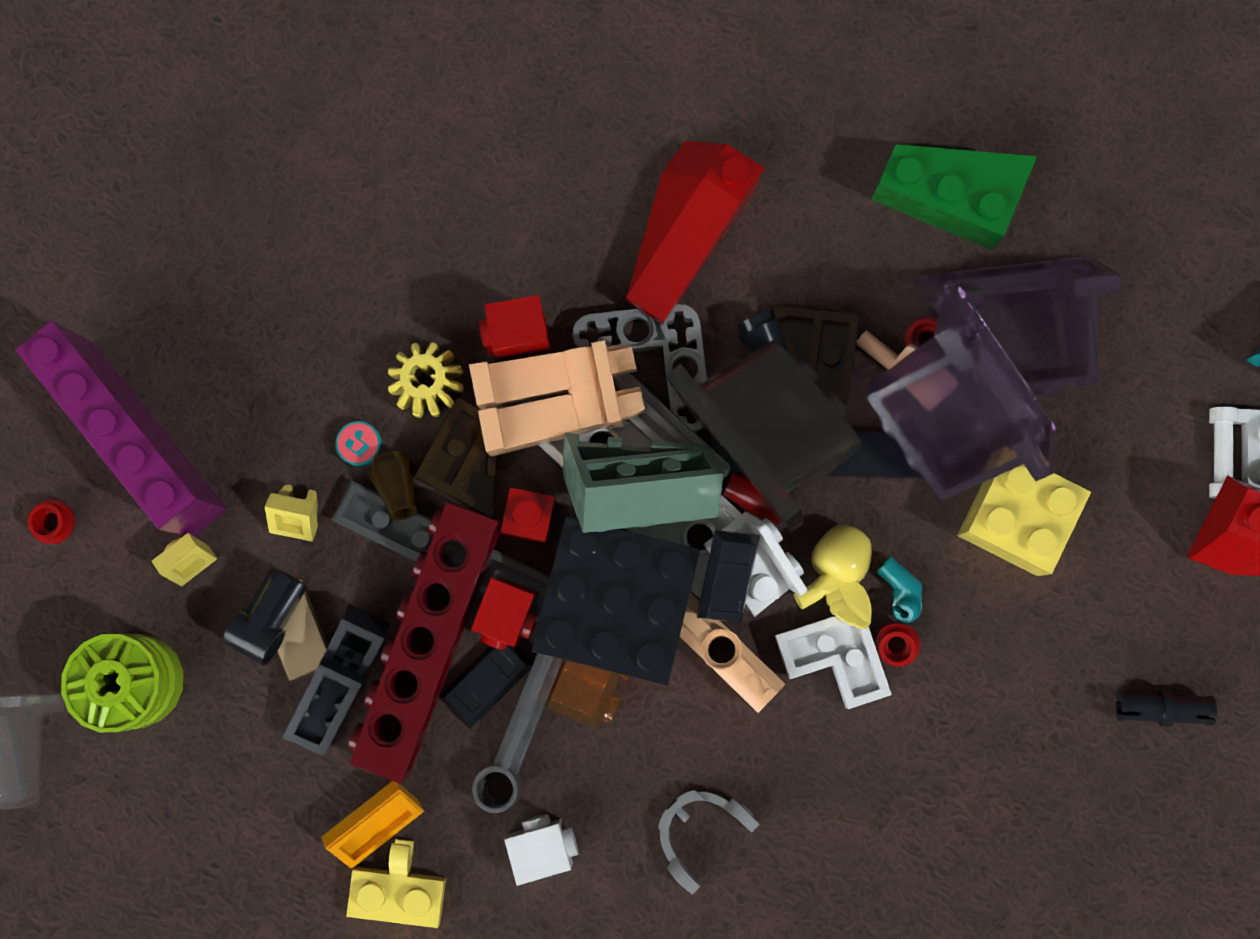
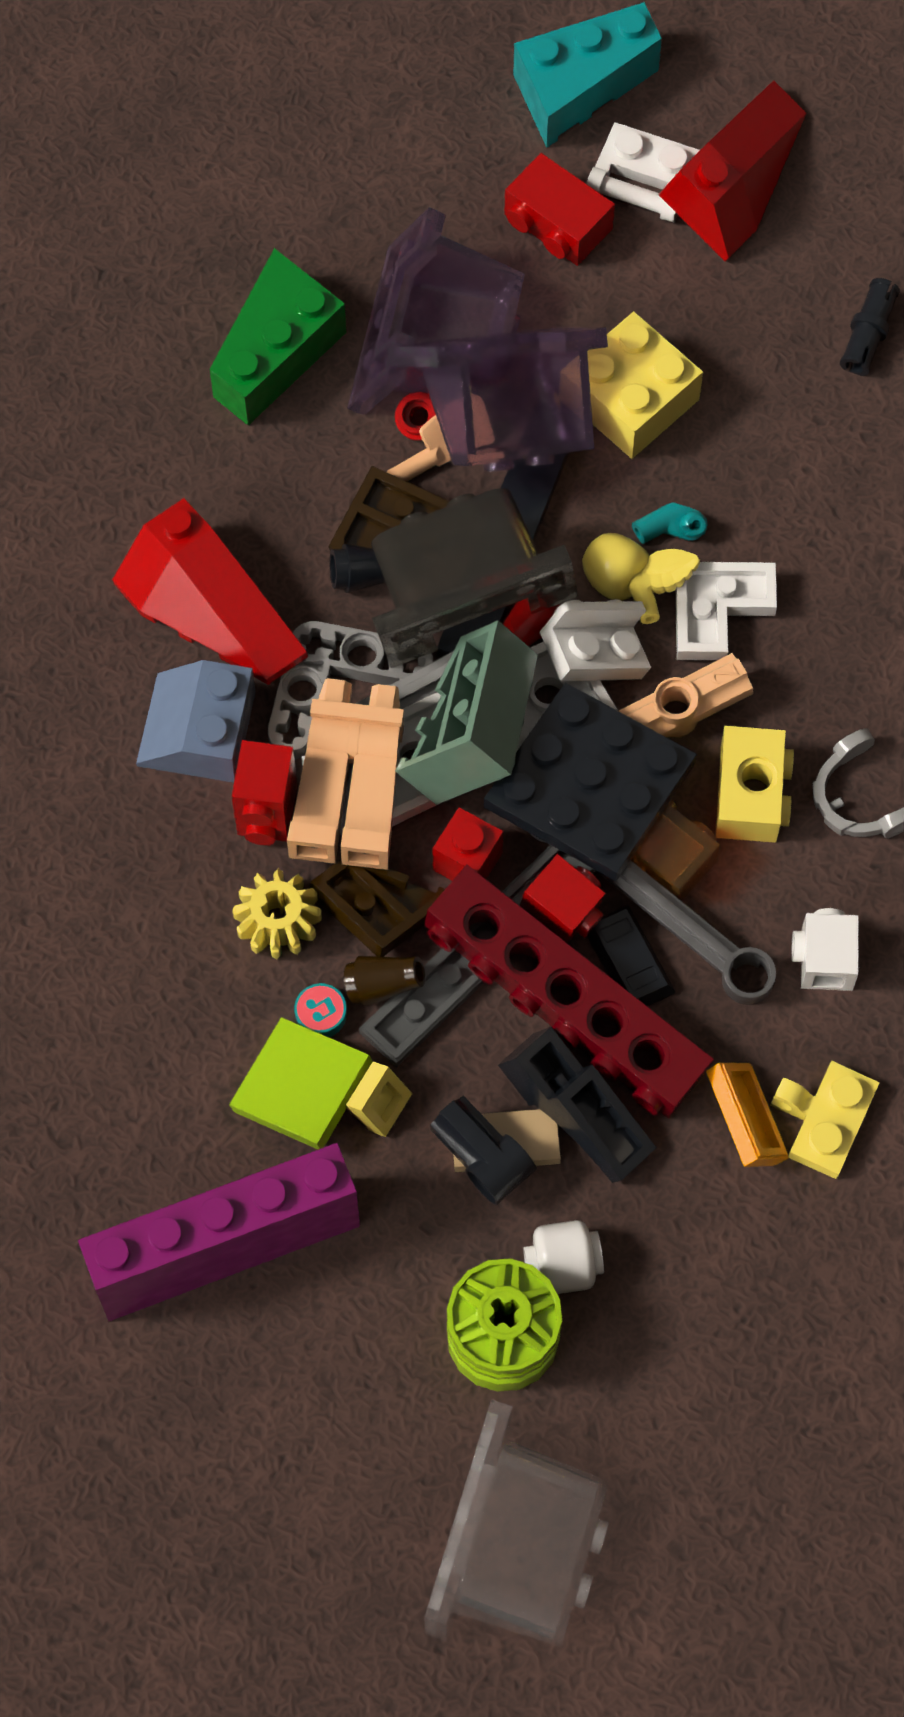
camera: 75 degrees left, 15 degrees down
(39, 519) = (282, 1356): red plate -> none
(184, 559) = (384, 1229): light yellow plate -> none
(203, 711) = (566, 1255): none -> white head
(286, 450) = (300, 1083): none -> lime tile
(575, 257) = (198, 720): none -> sand blue slope
(693, 719) = (753, 755): none -> light yellow brick
(728, 576) = (604, 661): black tile -> none
(901, 656) = (733, 534): red plate -> none
(1179, 390) = (558, 209): none -> red brick

